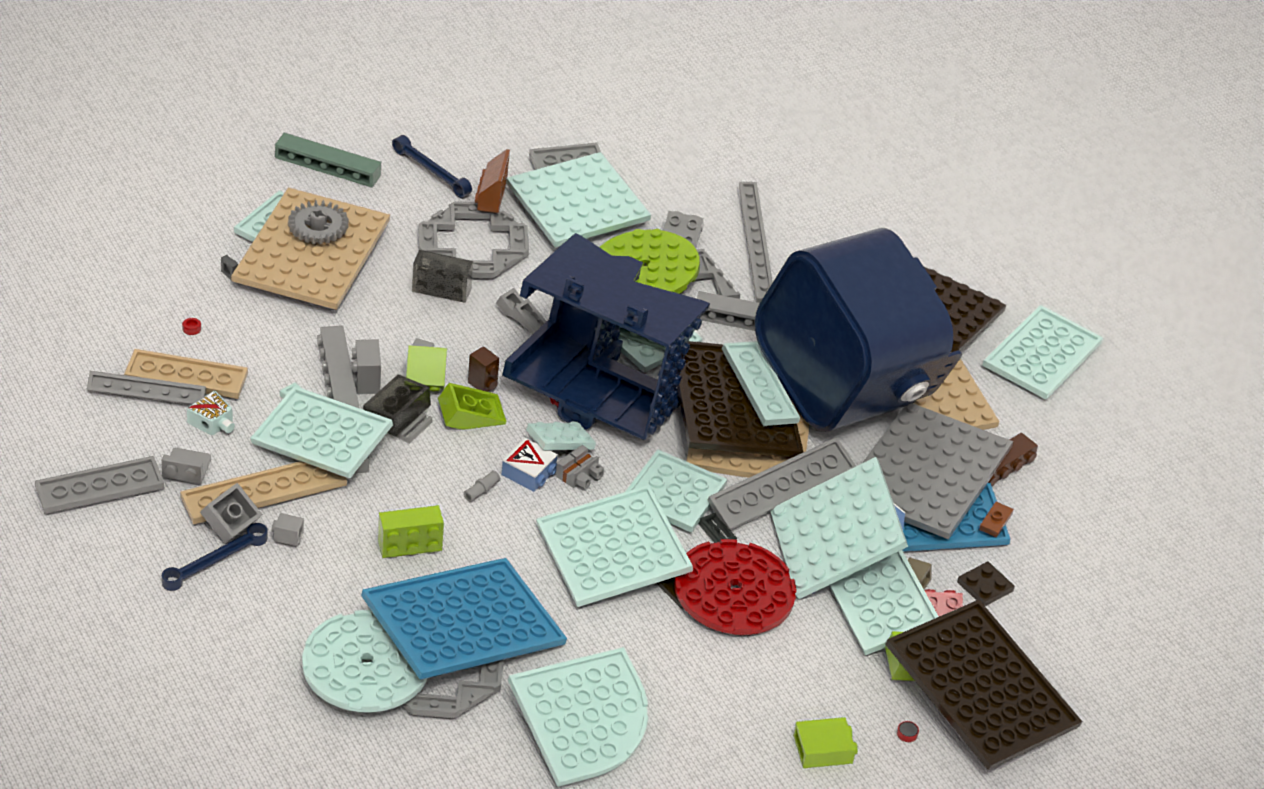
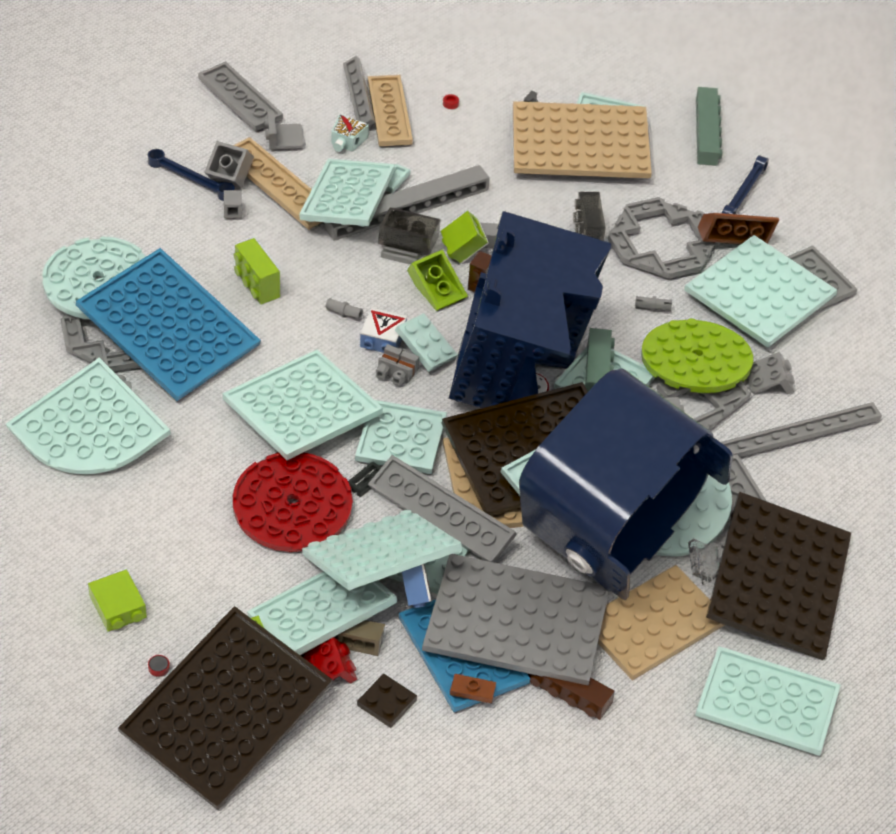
camera: 75 degrees right, 5 degrees up
(316, 218) = (586, 122): light grey gear -> none
(366, 366) = (446, 201): light grey brick -> none

